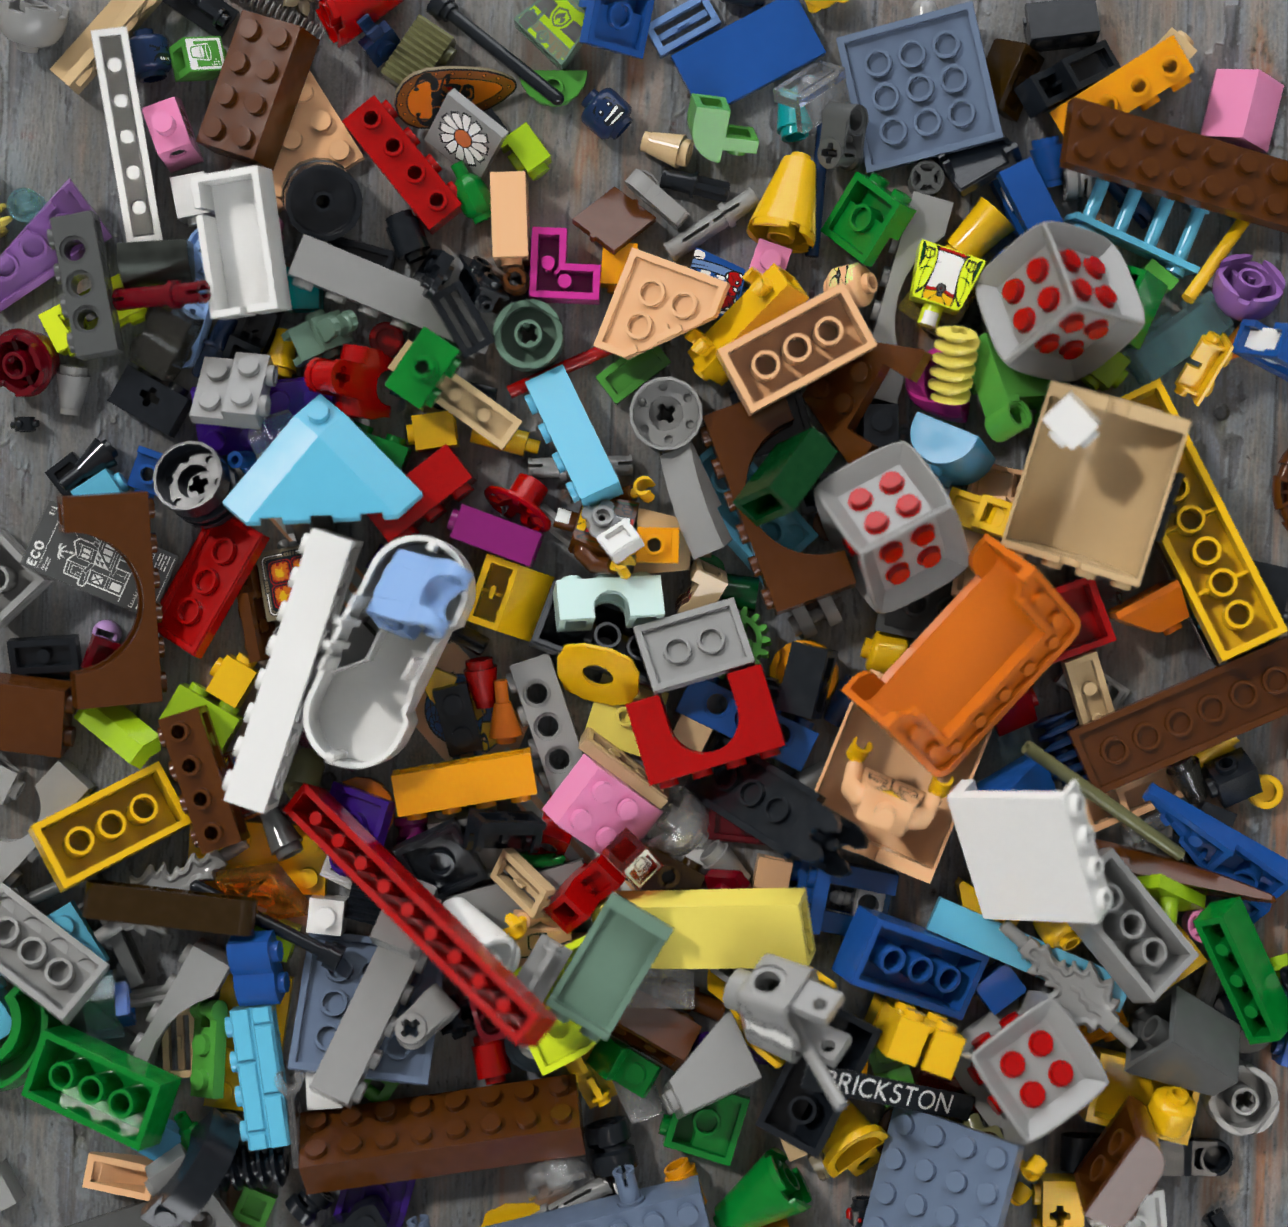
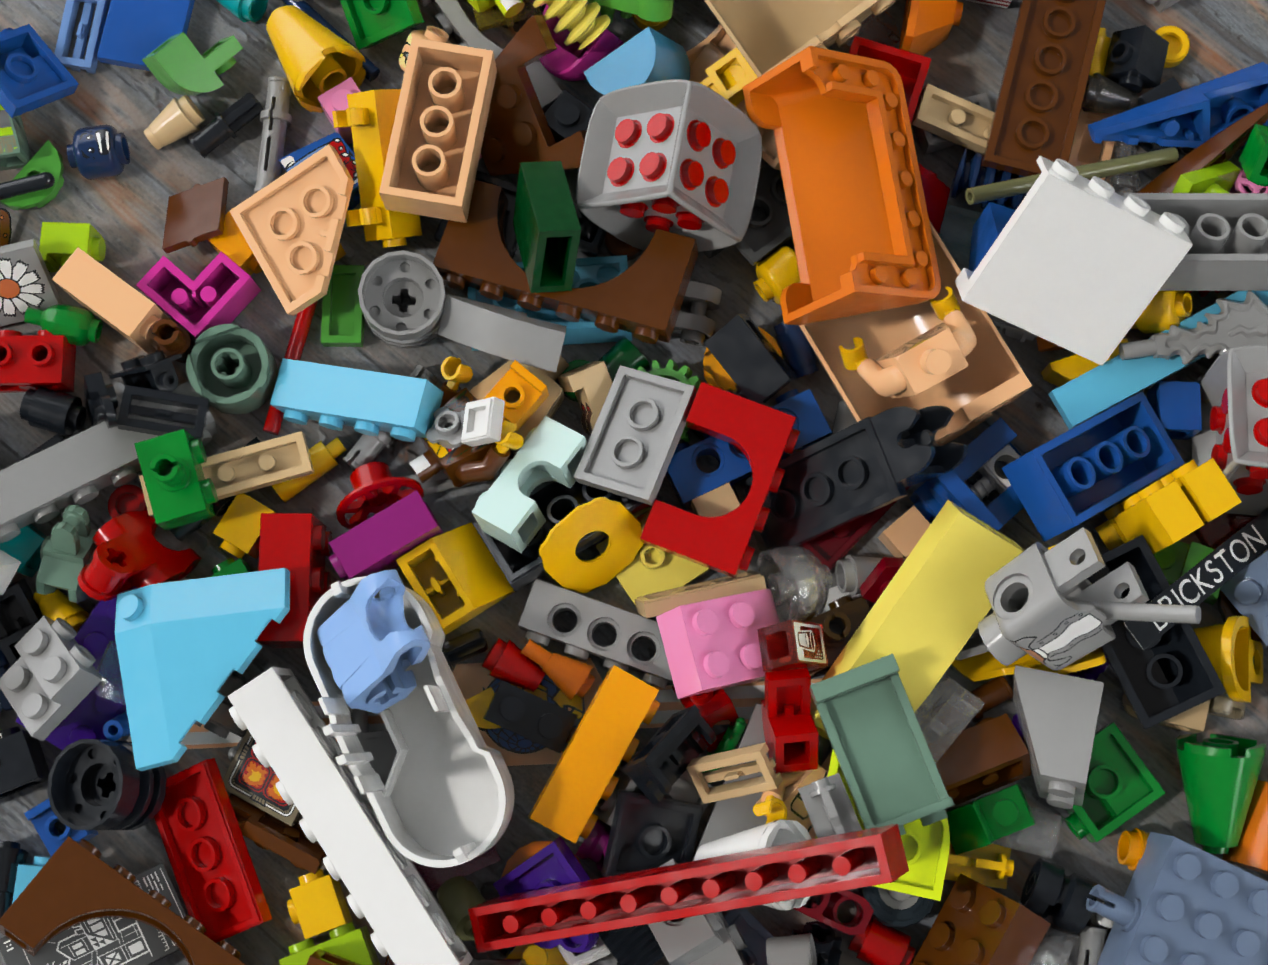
camera: 45 degrees left, 10 degrees down
(656, 197) = (210, 164): light grey piece -> none

